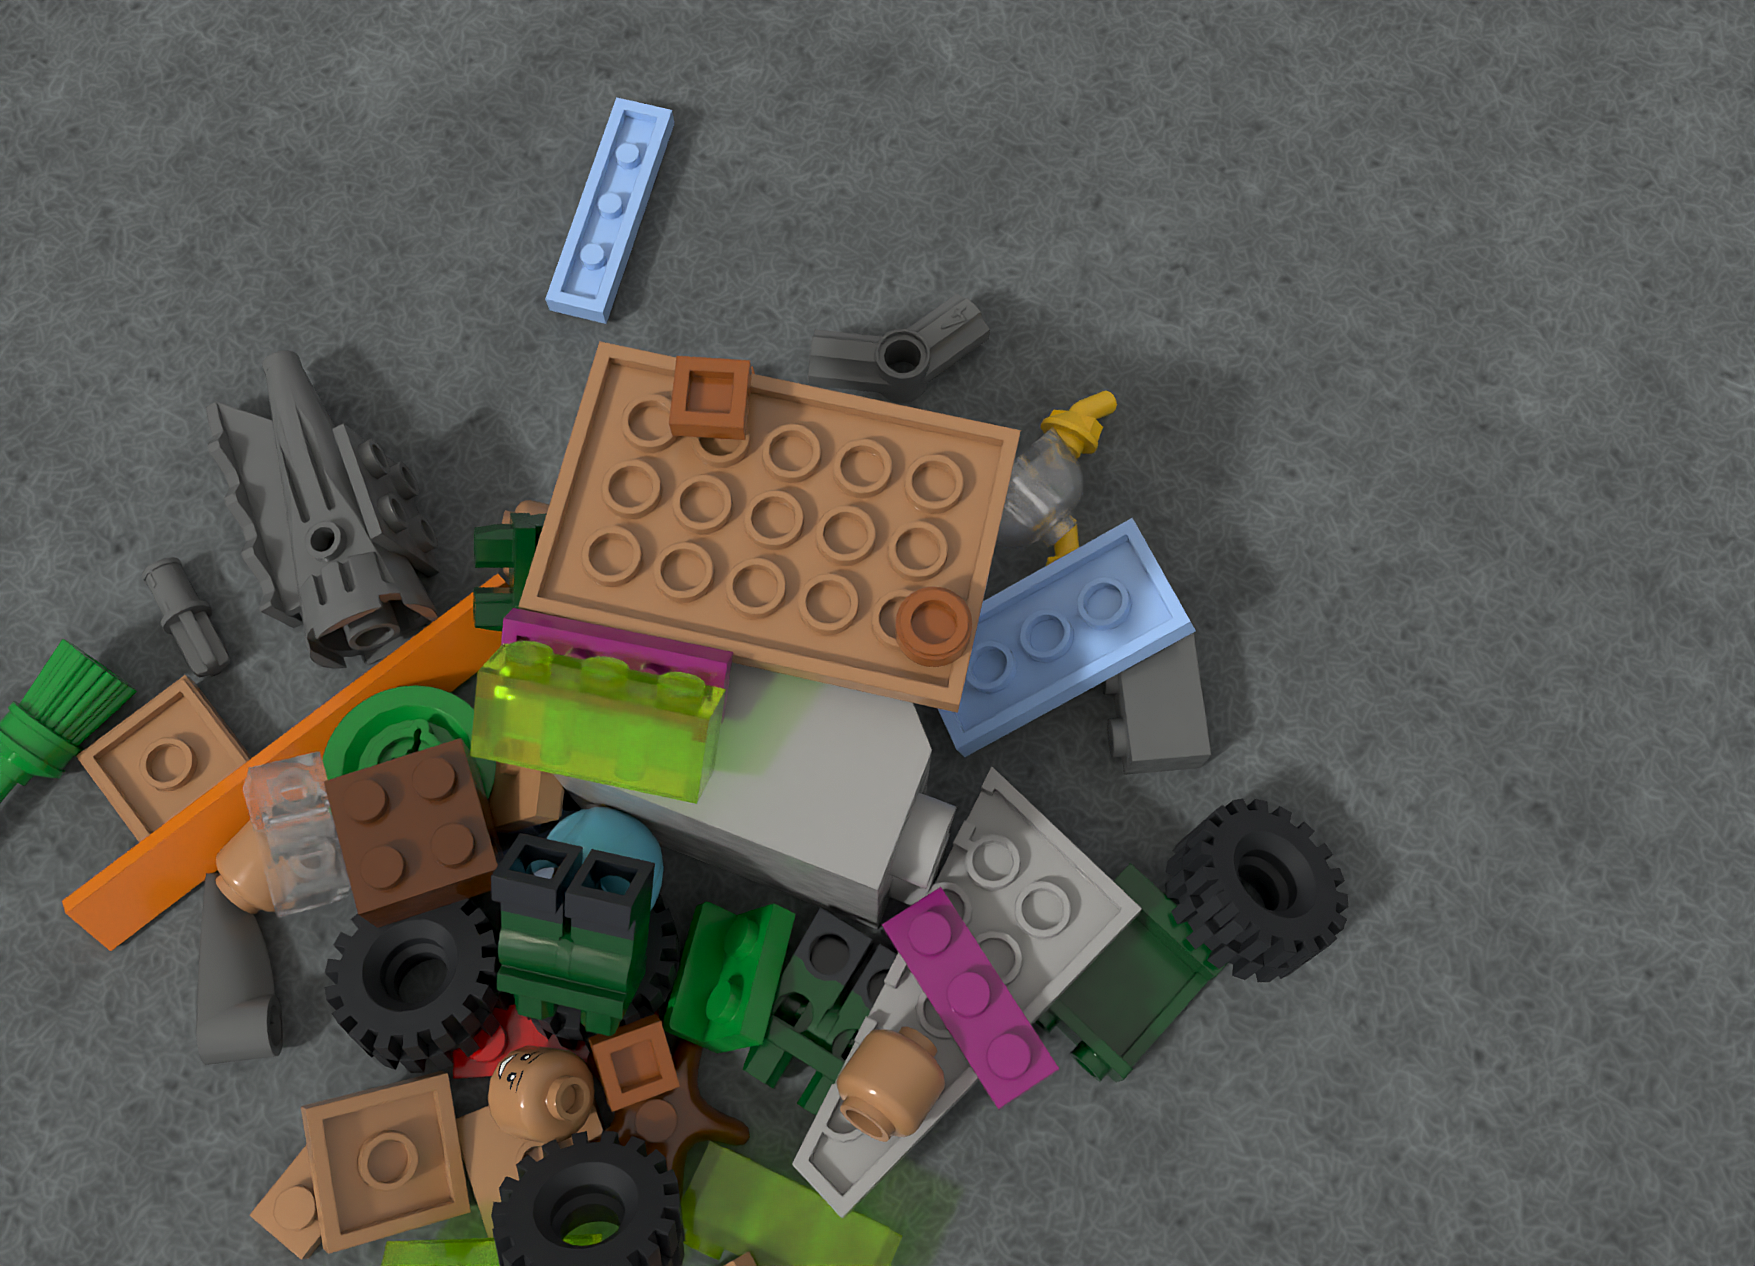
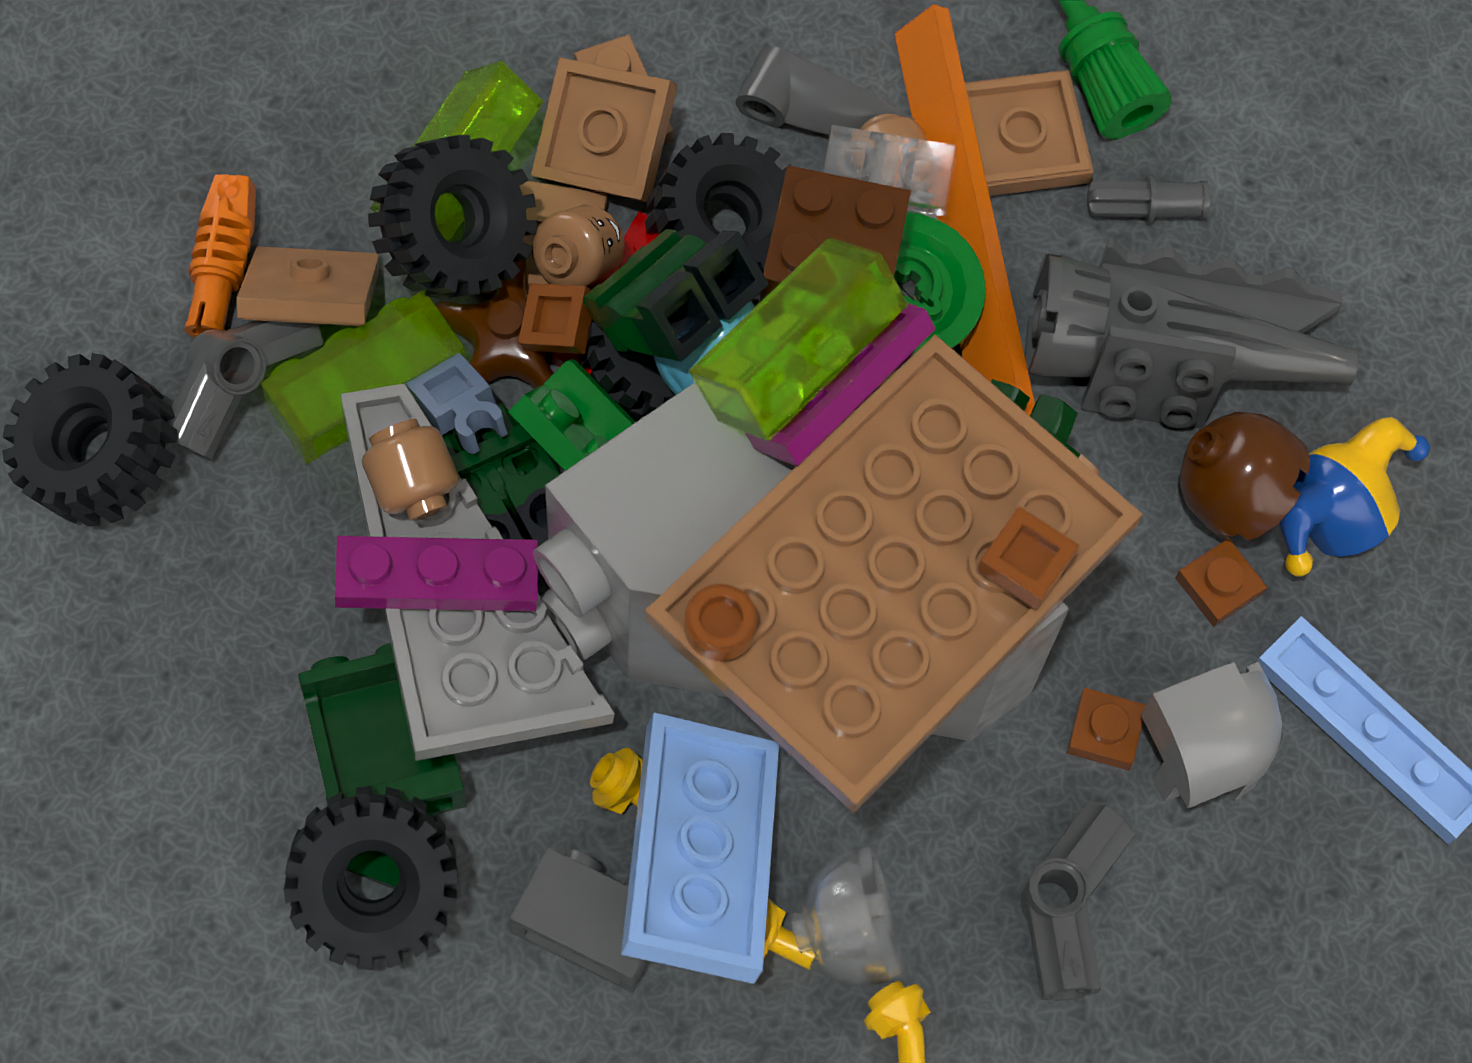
camera: 115 degrees right, 5 degrees down
(410, 316) = (1348, 495): none -> blue piece
(443, 388) = (1242, 474): none -> reddish brown cylinder
(545, 381) = (1221, 582): none -> dark orange plate
(696, 300) = (1214, 733): none -> light grey brick
(767, 1113) = (457, 398): none -> sand blue plate
(1022, 751) = (617, 780): none -> yellow plate

